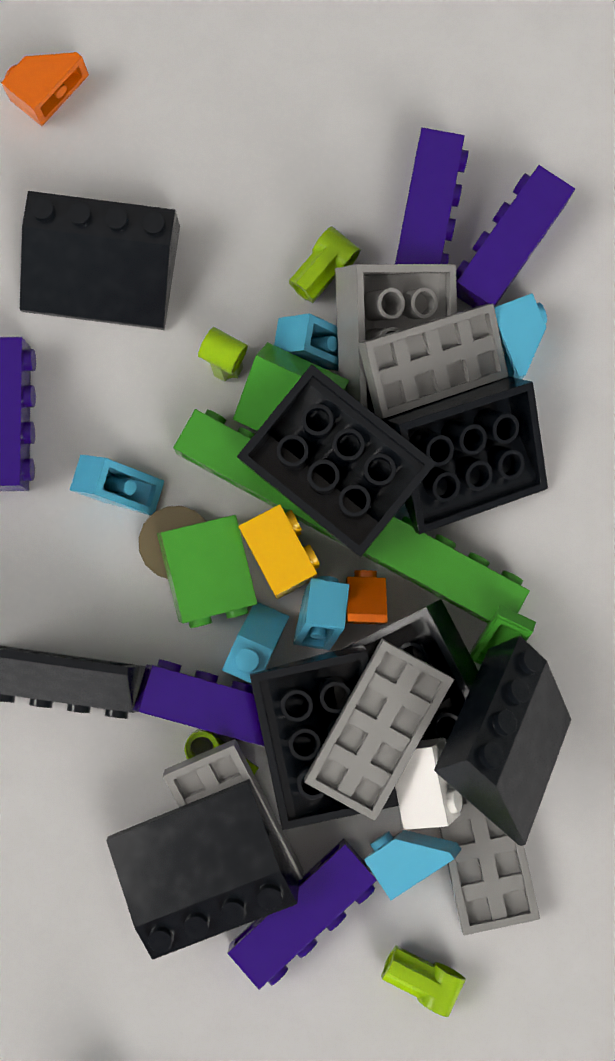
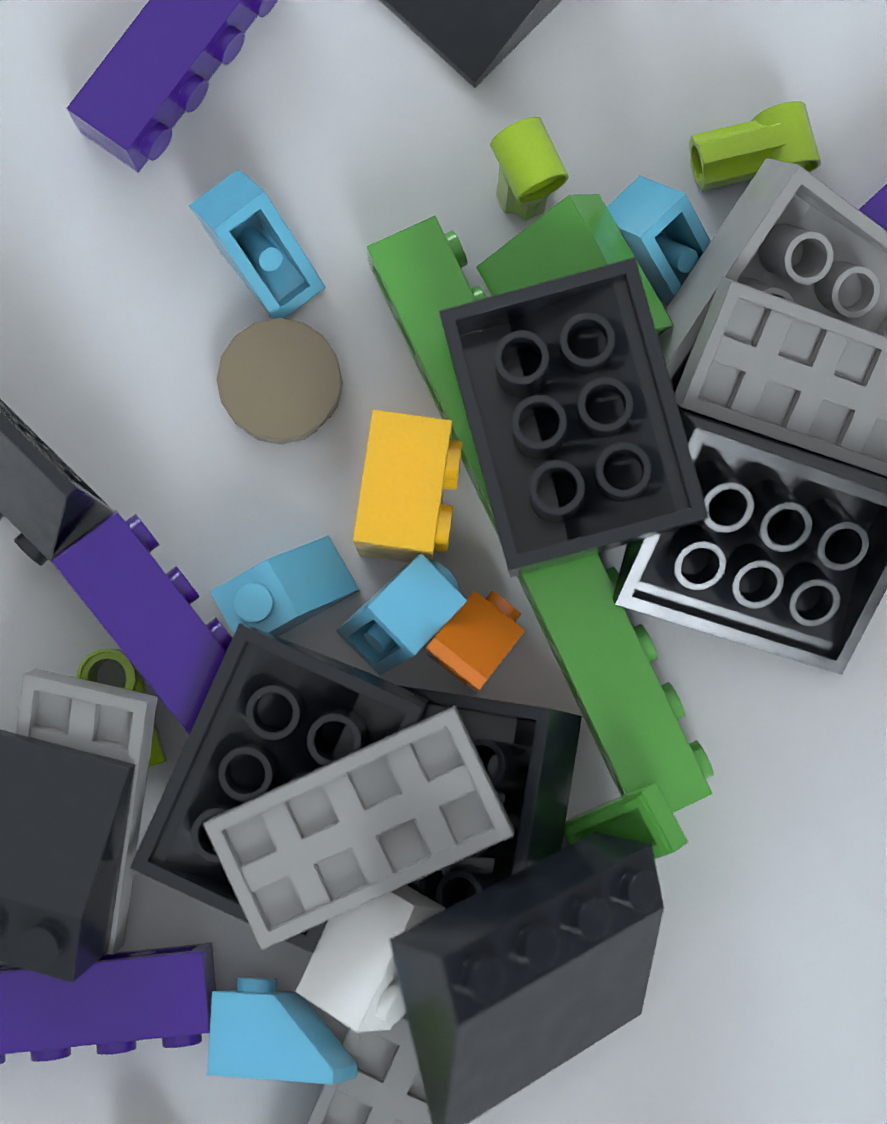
camera: 35 degrees right, 0 degrees up
(207, 570) = (292, 445): bright green brick -> none

